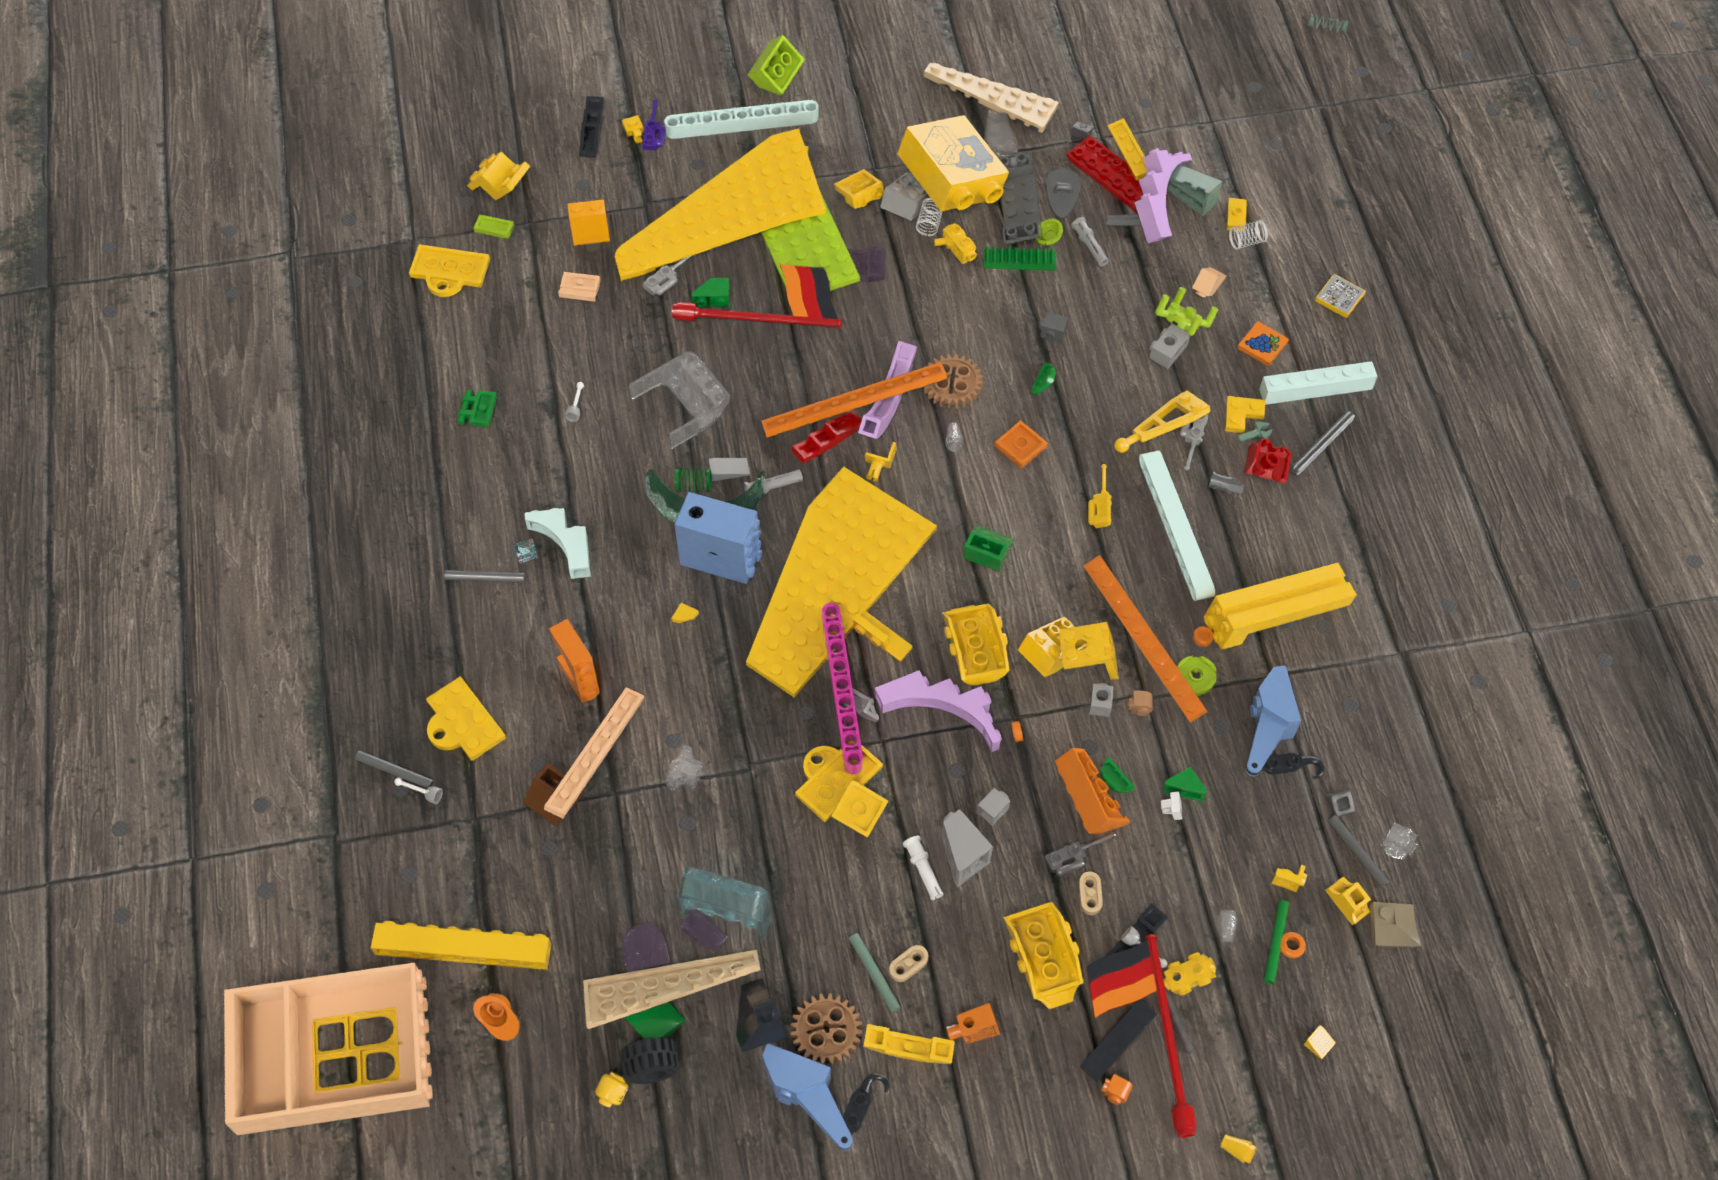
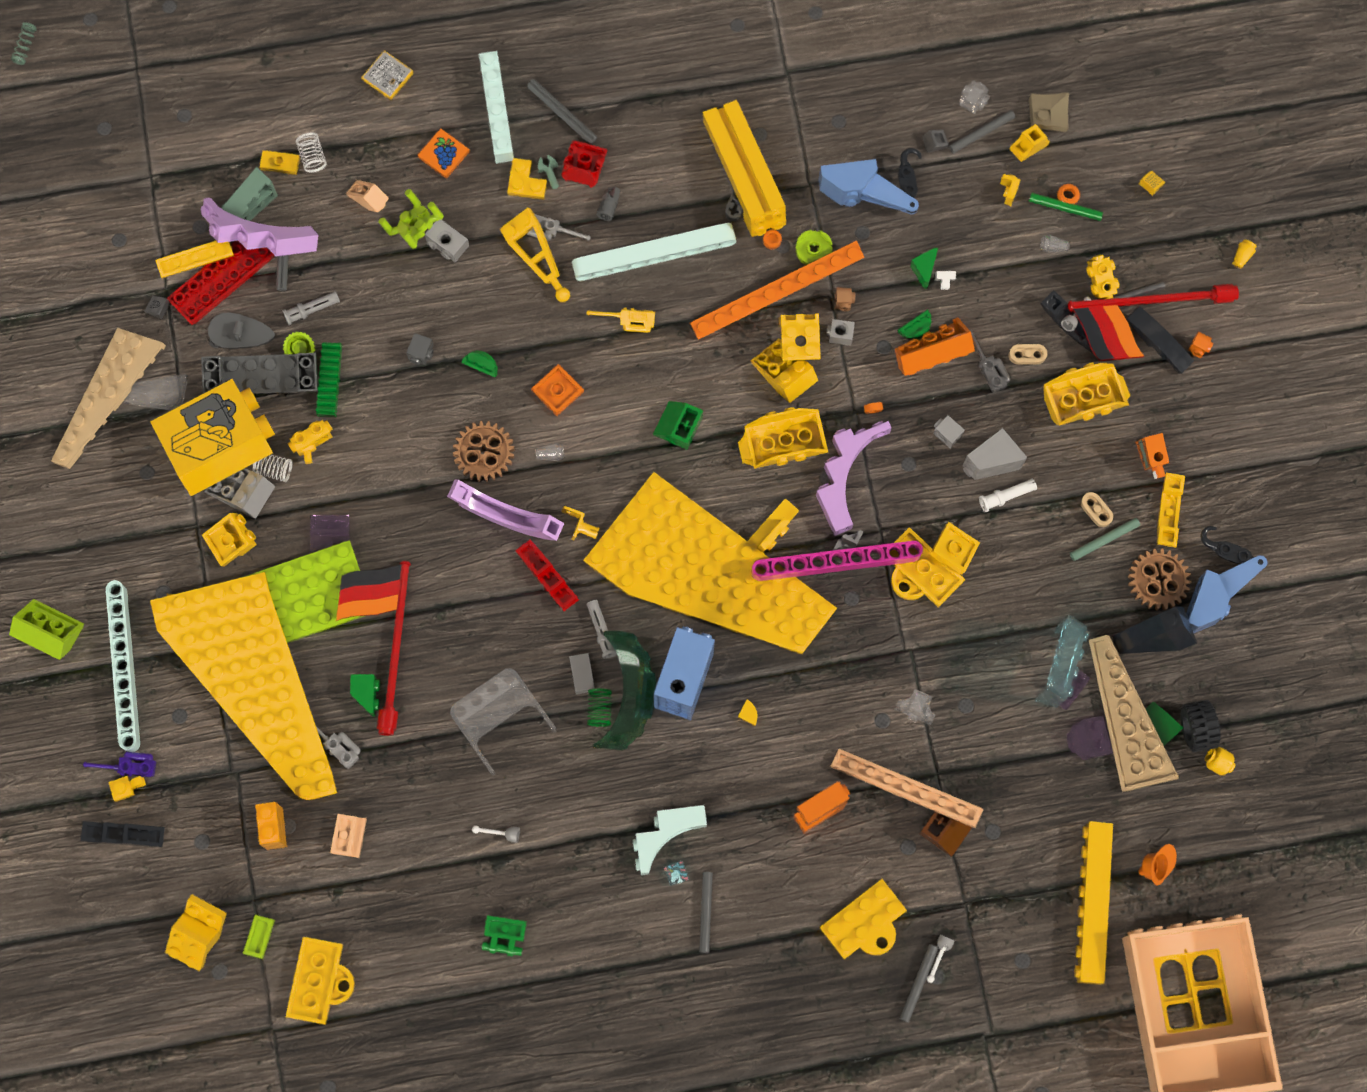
camera: 90 degrees left, 15 degrees up
(854, 399) = (511, 546): orange plate -> none

